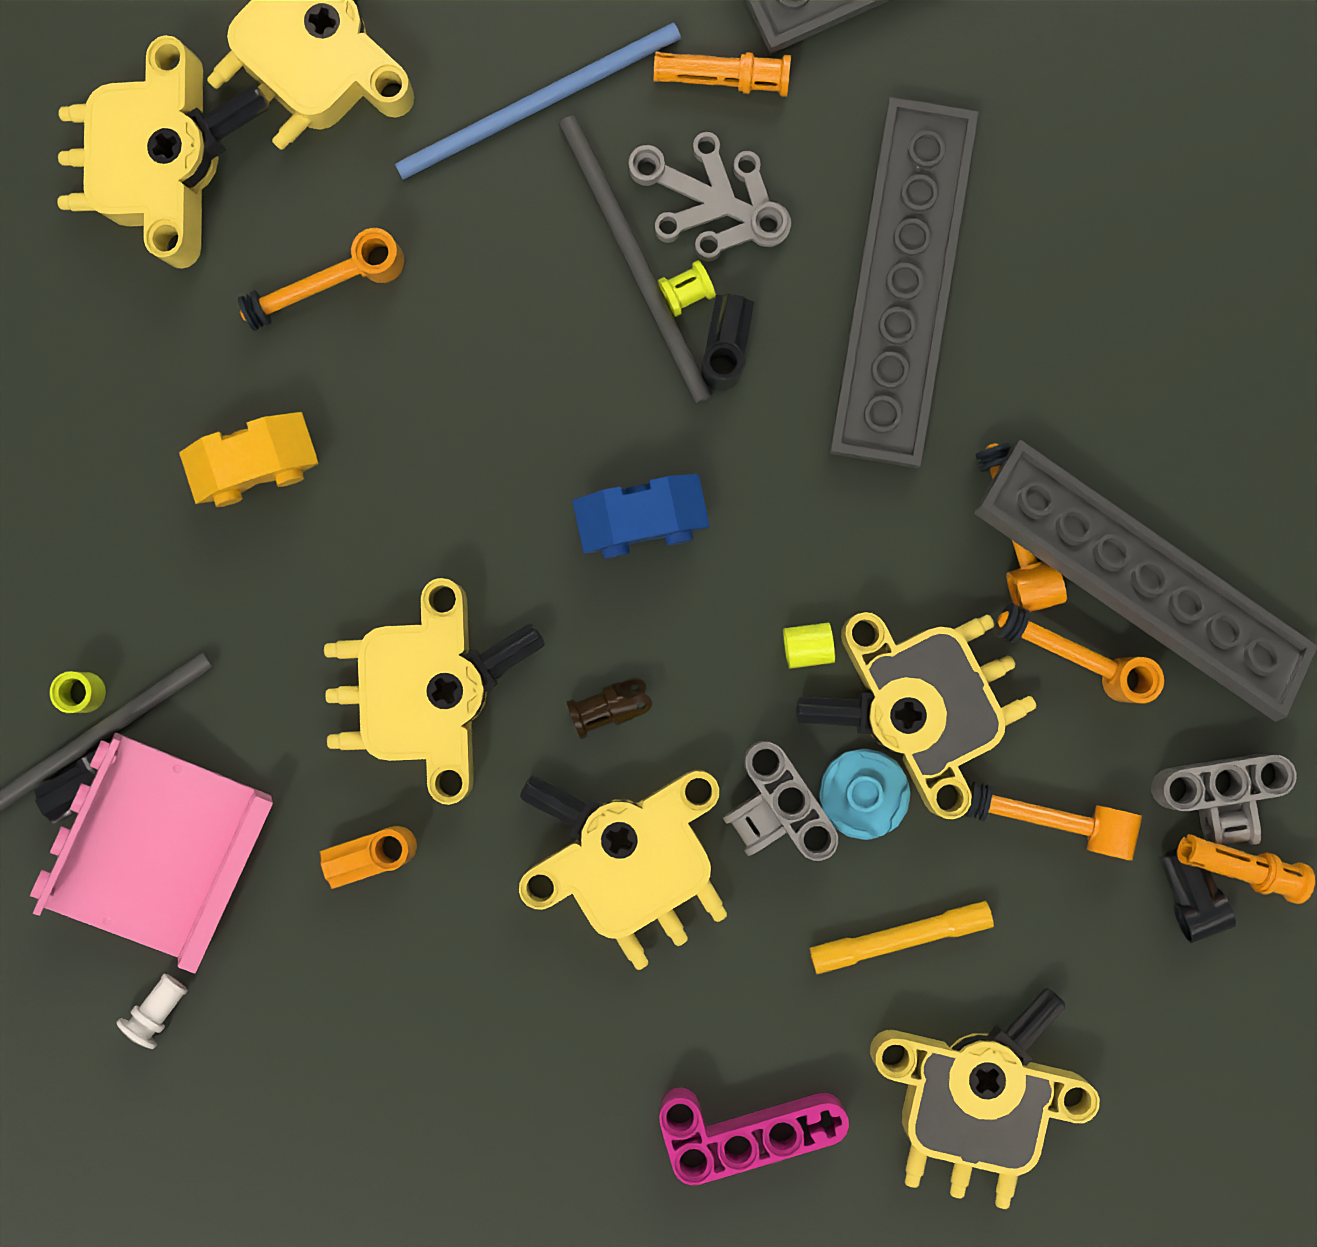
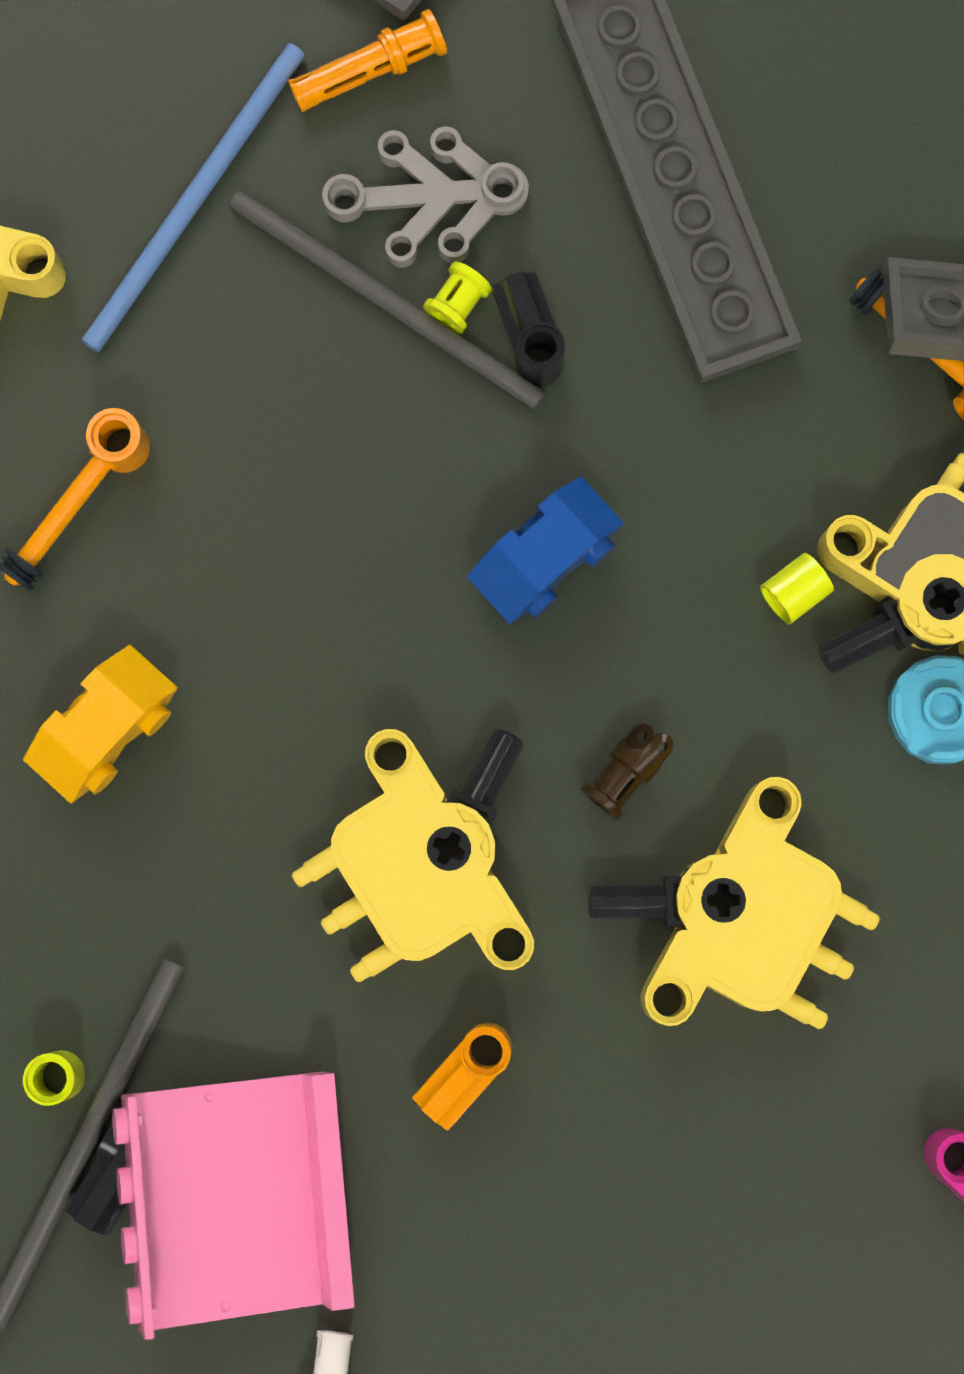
camera: 30 degrees left, 5 degrees down
(767, 815) = (855, 794): light grey piece -> none

